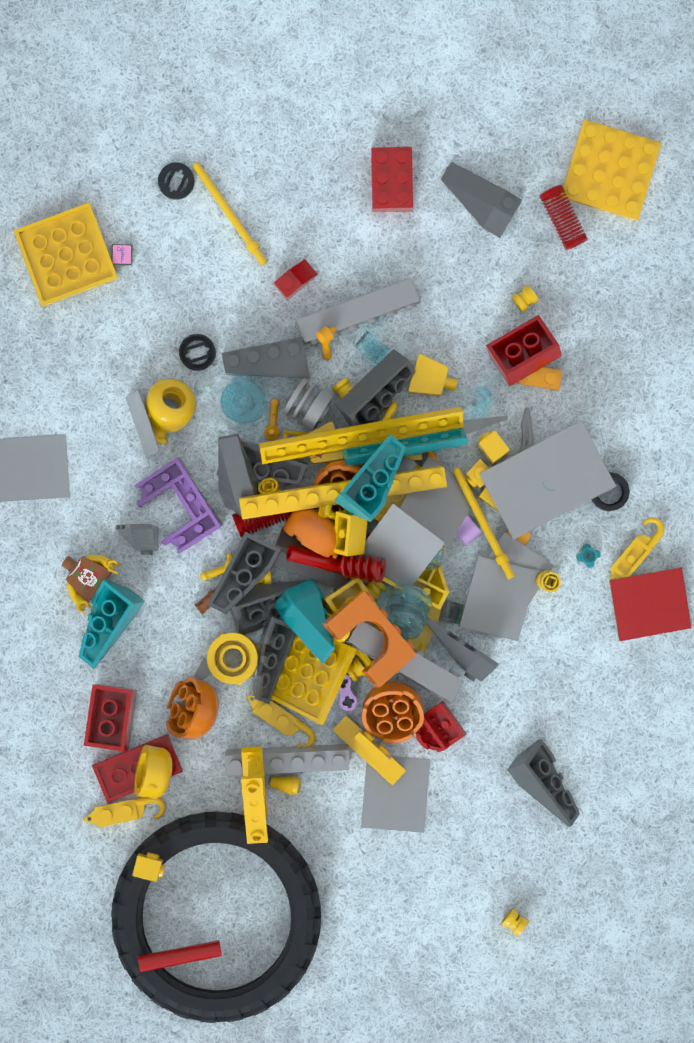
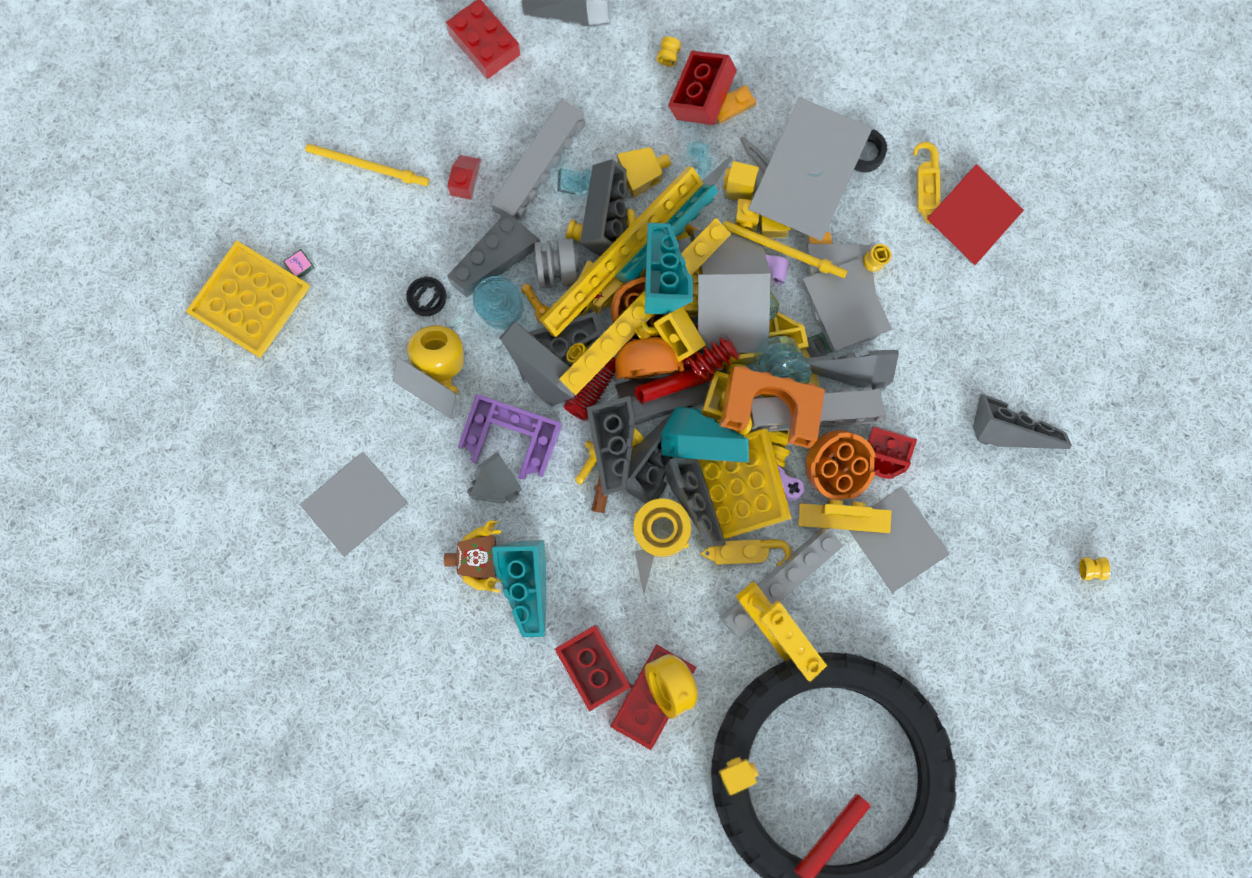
camera: 40 degrees left, 10 degrees down
(123, 811) = (672, 746): yellow plate -> none
(176, 195) = (295, 184): black piece -> none
(198, 714) = (672, 601): orange cylinder -> none
(287, 784) = (799, 604): yellow cone -> none
(325, 335) = (525, 196): light orange piece -> none
(594, 554) = (895, 209): teal plate -> none

